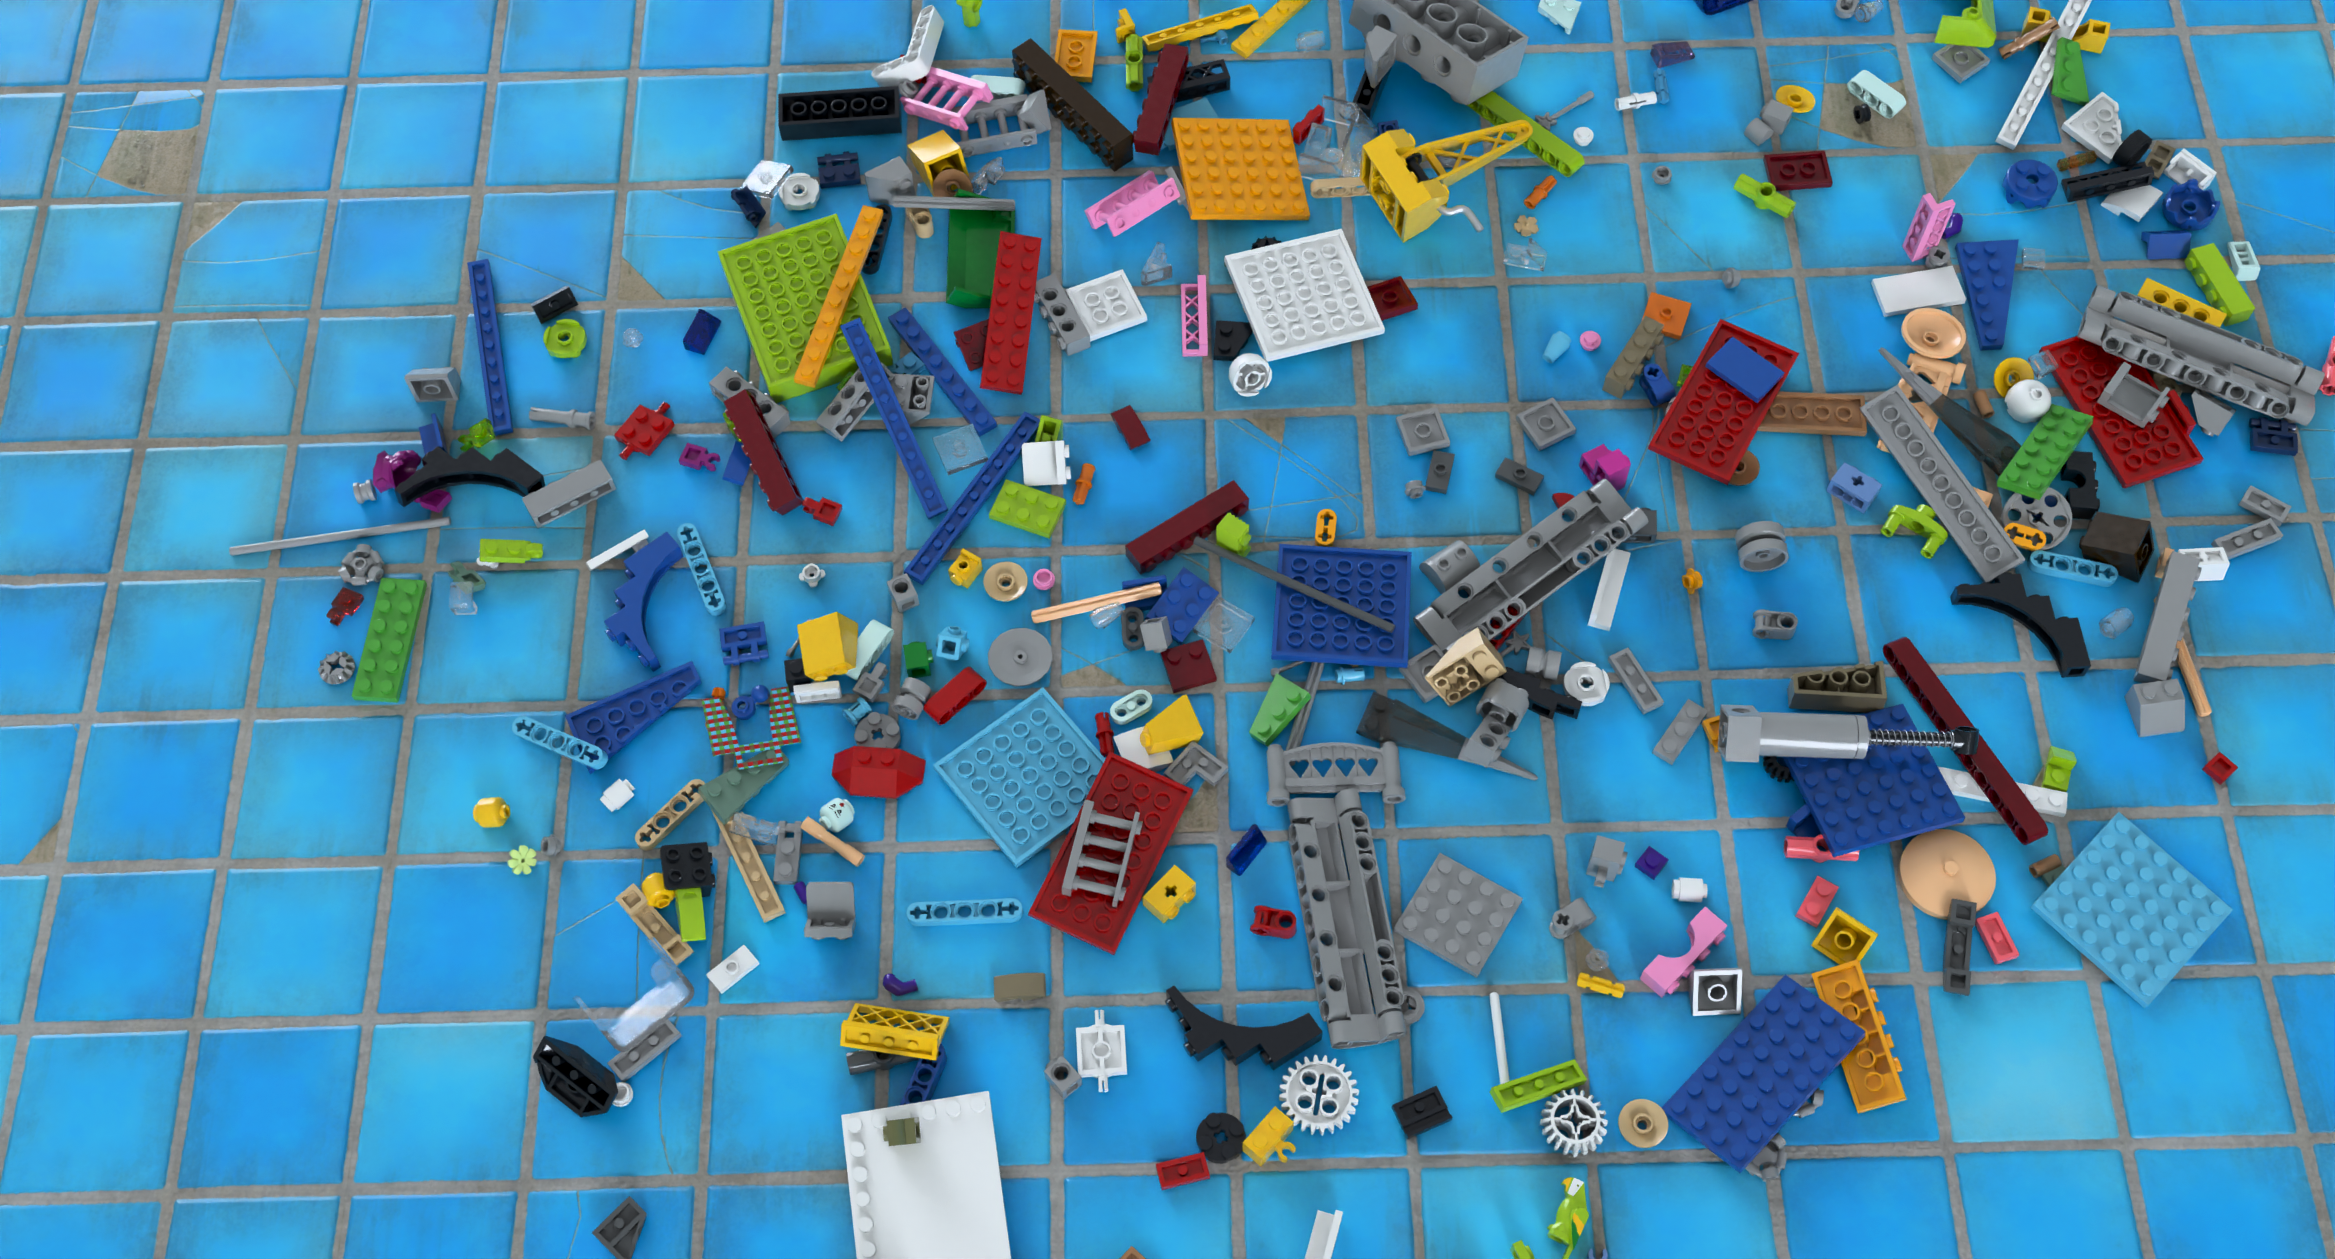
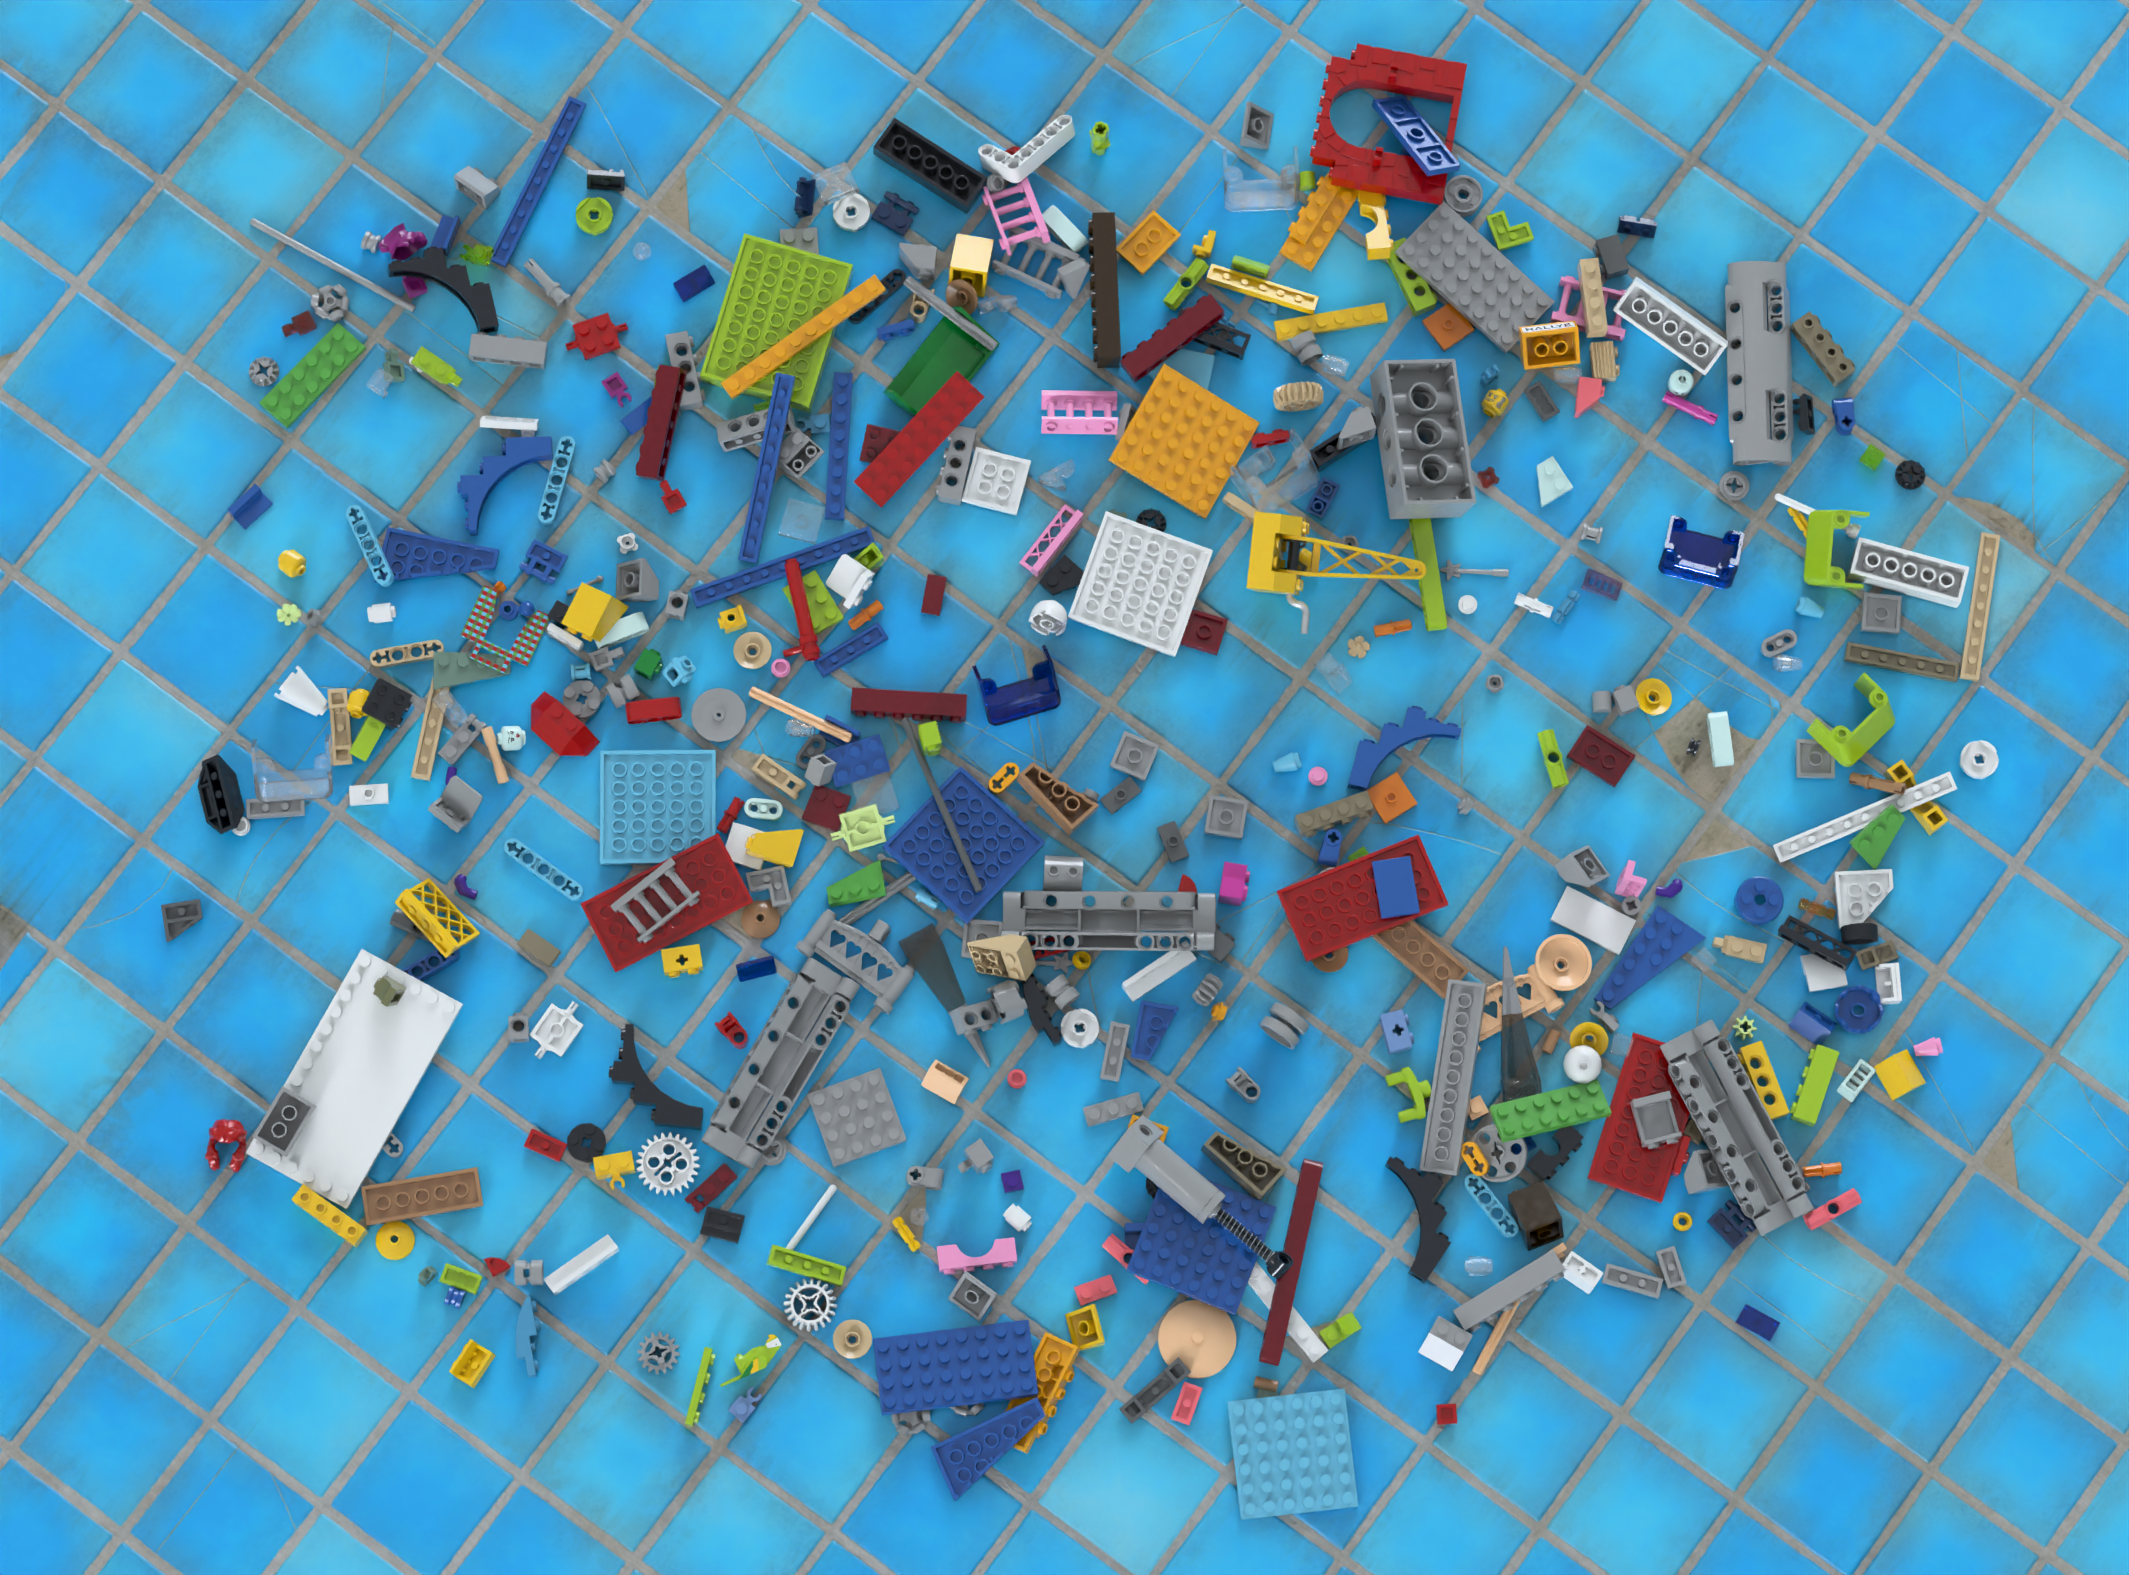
camera: 30 degrees right, 15 degrees up
(409, 793) = (249, 506): none -> blue panel
(591, 920) = (302, 693): none -> white cone
(741, 529) = (604, 471): none -> light grey wheel
(848, 596) = (636, 582): none -> light grey slope
(915, 250) = (902, 328): none -> blue plate
(1049, 534) = (808, 639): none -> red cylinder
(1094, 522) = (850, 650): none -> blue tile
(1121, 669) = (778, 776): none -> tan plate
(1175, 19) = (1250, 266): none -> lime slope
(1214, 815) = (763, 928): none -> medium nougat dish
(1237, 656) = (862, 827): none -> yellowish green plate
(1276, 42) = (1305, 345): none -> light grey wheel
(1285, 452) = (1021, 697): none -> clear blue windscreen
(1304, 76) = (1298, 396): none -> tan gear
(1331, 731) = (880, 931): none -> light grey brick
(1380, 1085) = (711, 1188): none -> dark red plate
(1388, 509) = (1057, 799): none -> medium nougat wedge
(1510, 820) = (944, 1081): none -> light nougat brick
(1534, 625) = (1084, 957): none -> yellow plate
(1571, 769) = (1016, 1078): none -> coral plate
(1629, 22) = (1591, 533): none -> light grey bush
(1630, 249) = (1393, 737): none -> blue arch
(1647, 638) = (1150, 1028): none -> blue wing
(1667, 567) = (1207, 990): none -> light grey gear
(1857, 1134) = (974, 1451): none -> blue wing
(1869, 258) = (1582, 867): none -> light grey slope
(2008, 352) = (1606, 1020): none -> light grey plate
(2052, 229) = (1741, 948): none -> tan hinge
(2120, 281) = (1739, 1031): none -> yellowish green gear
(2235, 459) = (1686, 1217): none -> yellow plate
(2270, 233) = (1899, 1074): none -> yellow slope
(2271, 194) = (1930, 1047): none -> bright pink cone
(2295, 341) = (1822, 1170): none -> orange axle

